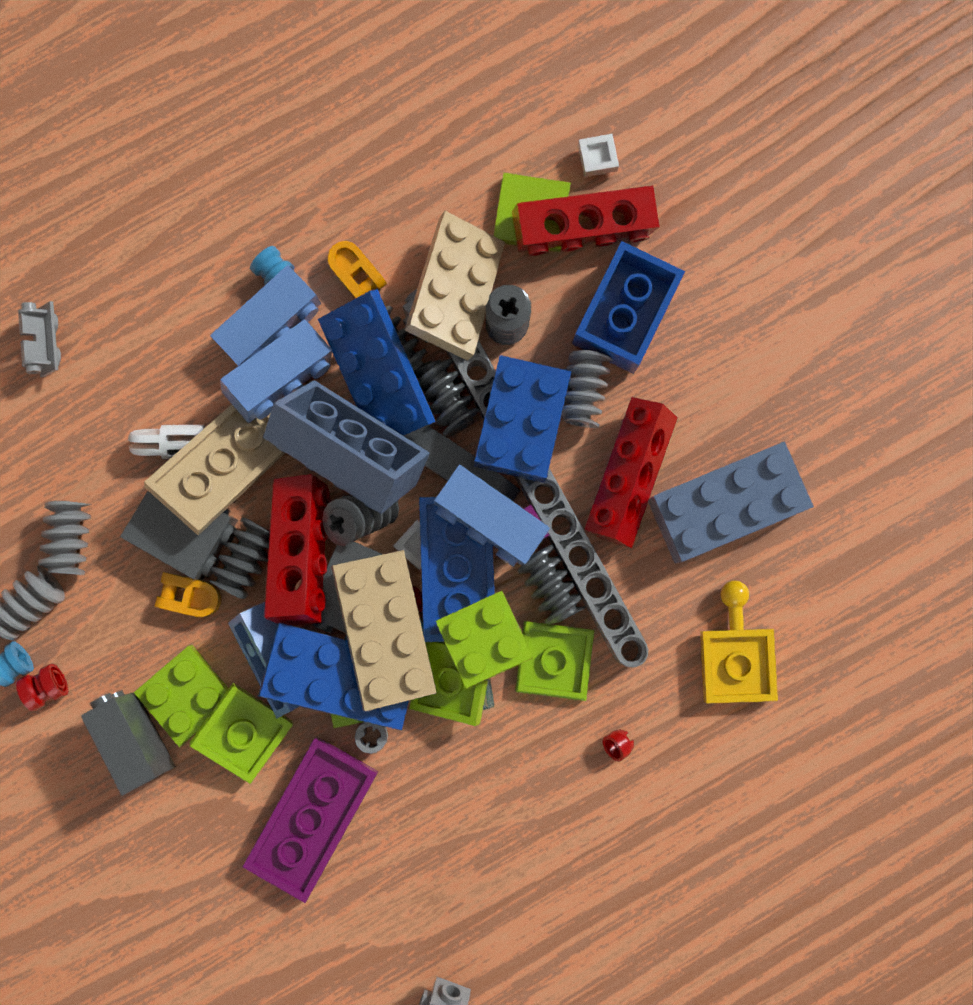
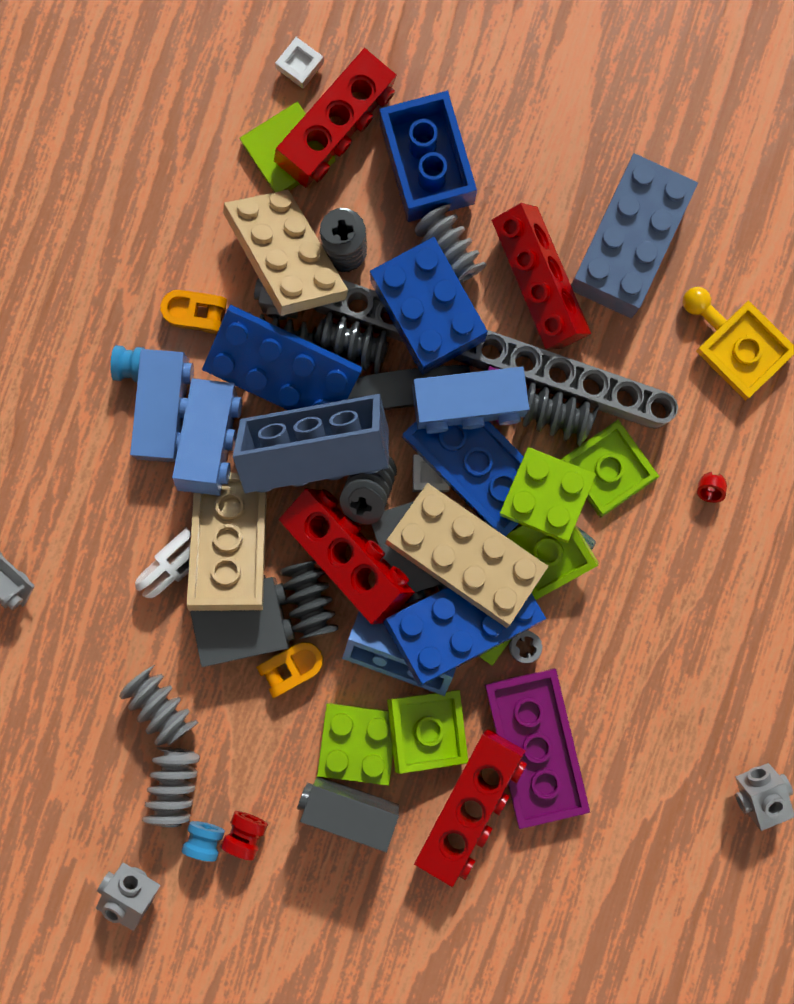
camera: 40 degrees left, 0 degrees up
(165, 831) = (437, 854): none -> red brick

